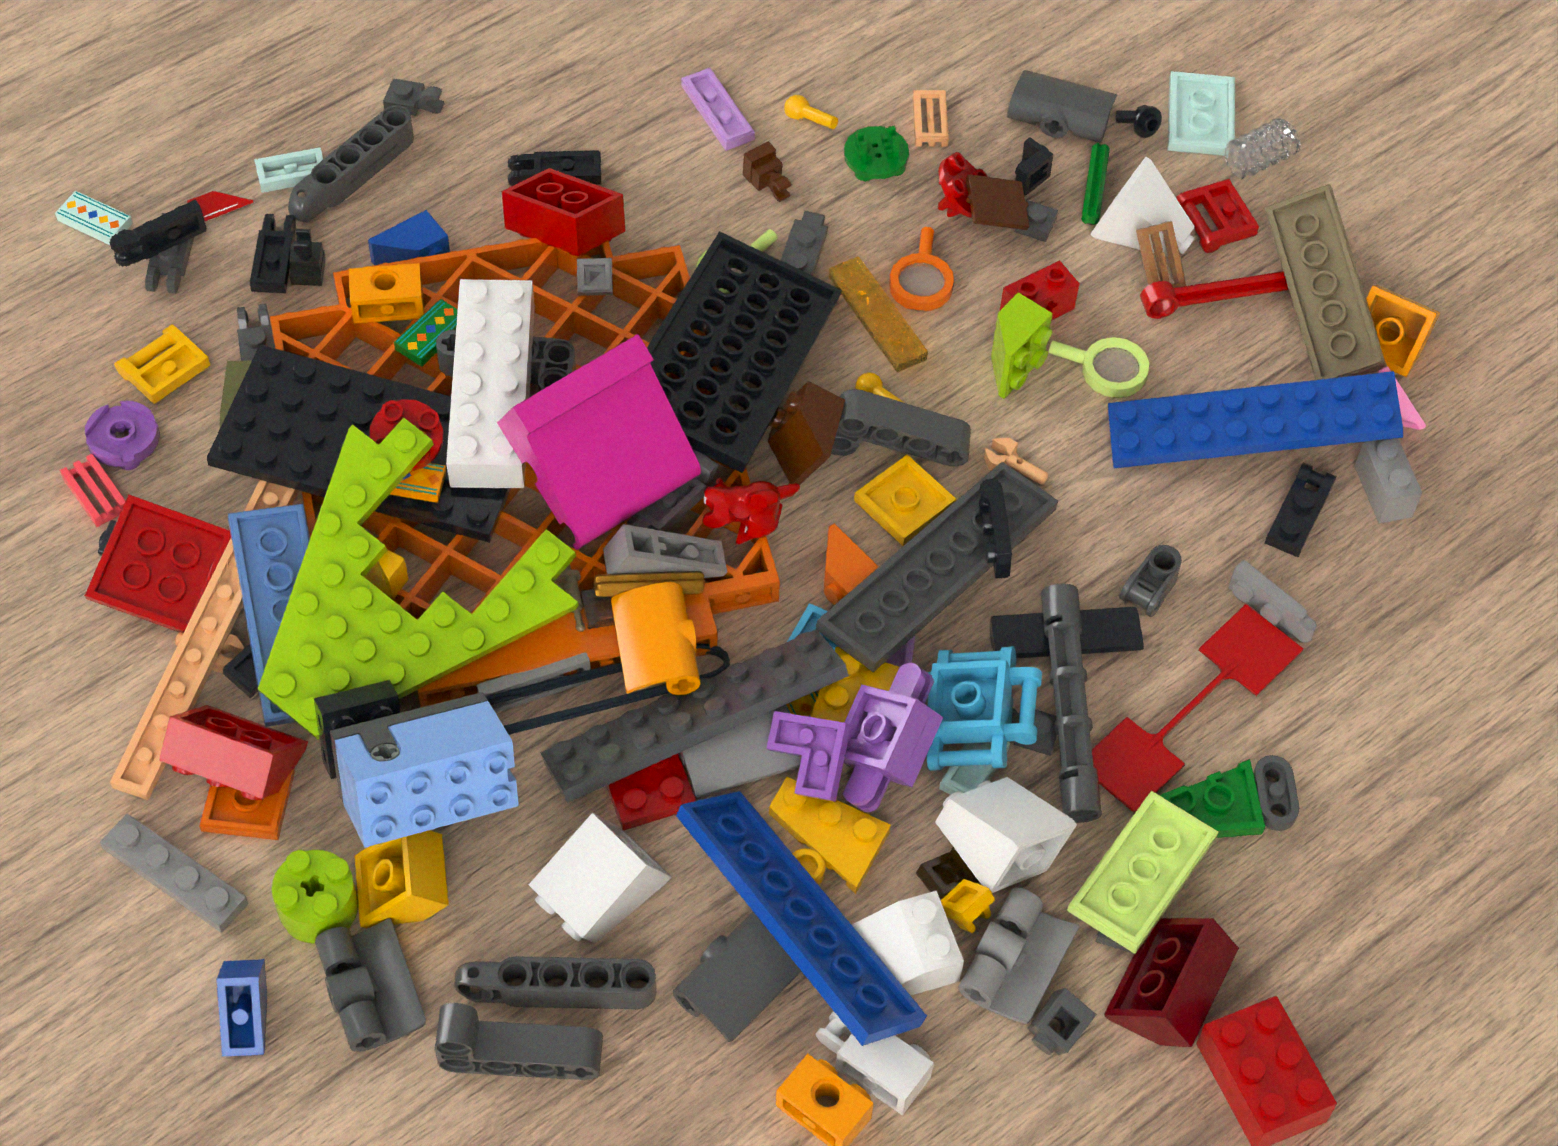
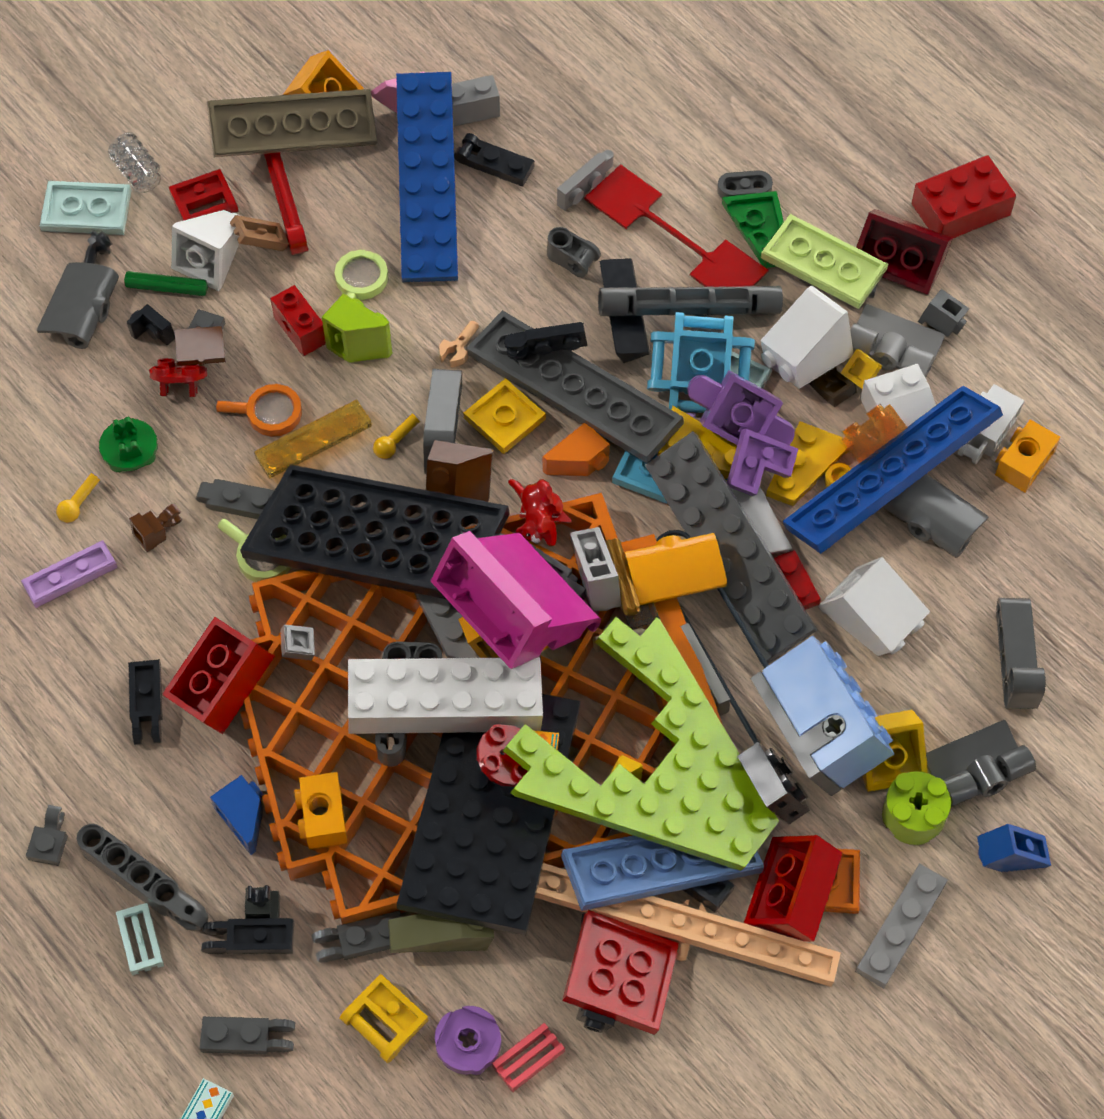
camera: 90 degrees left, 5 degrees up
(158, 234) = (243, 1035): black hinge -> none
(217, 204) = (180, 1006): red sticker -> none
(420, 339) = (361, 772): green tile -> none
(574, 993) = (965, 675): dark grey piece -> none
(849, 891) = (872, 434): none -> clear orange brick
(930, 137) = (85, 409): light nougat tile -> none

